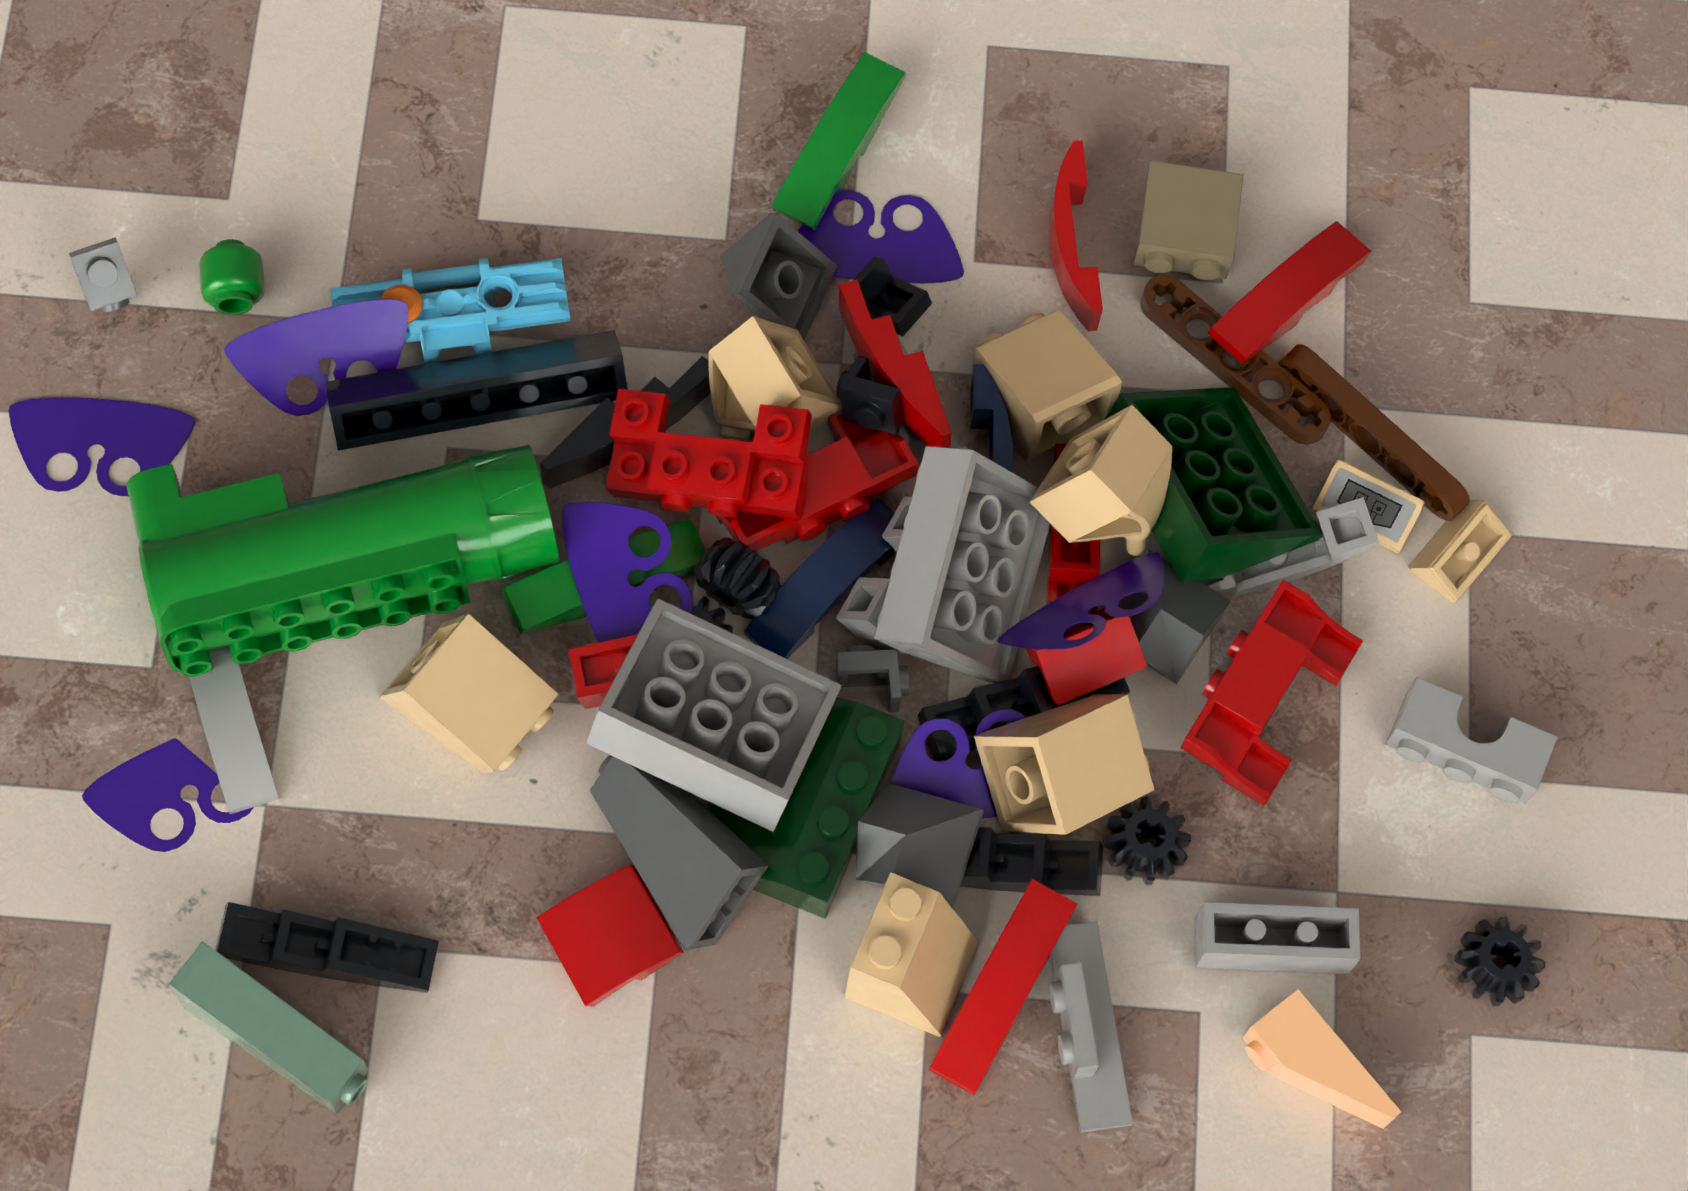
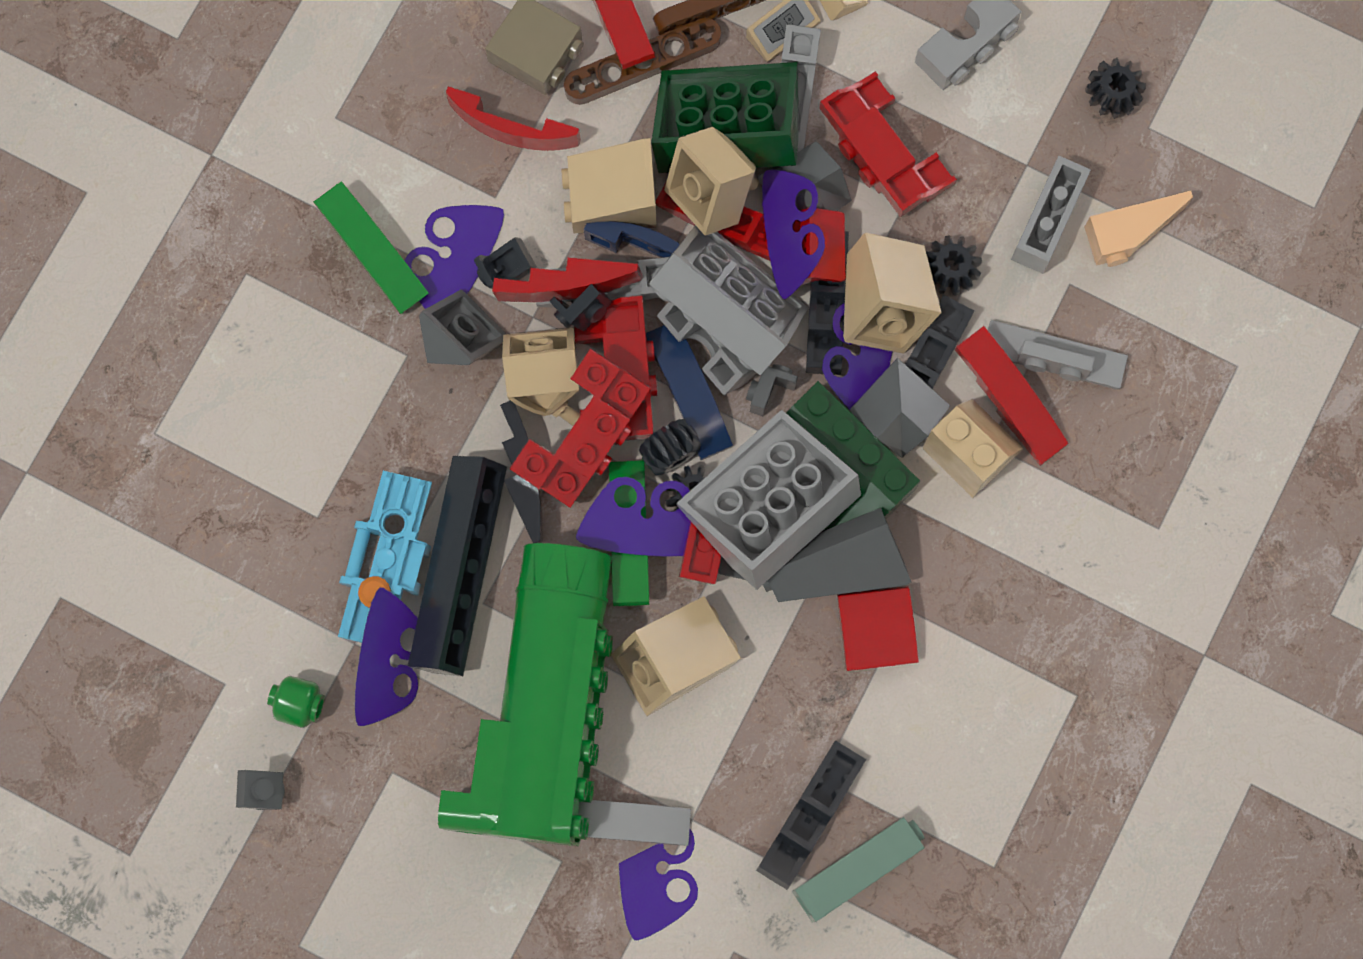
camera: 60 degrees left, 10 degrees up
(72, 425) = (357, 851): dark purple piece -> none

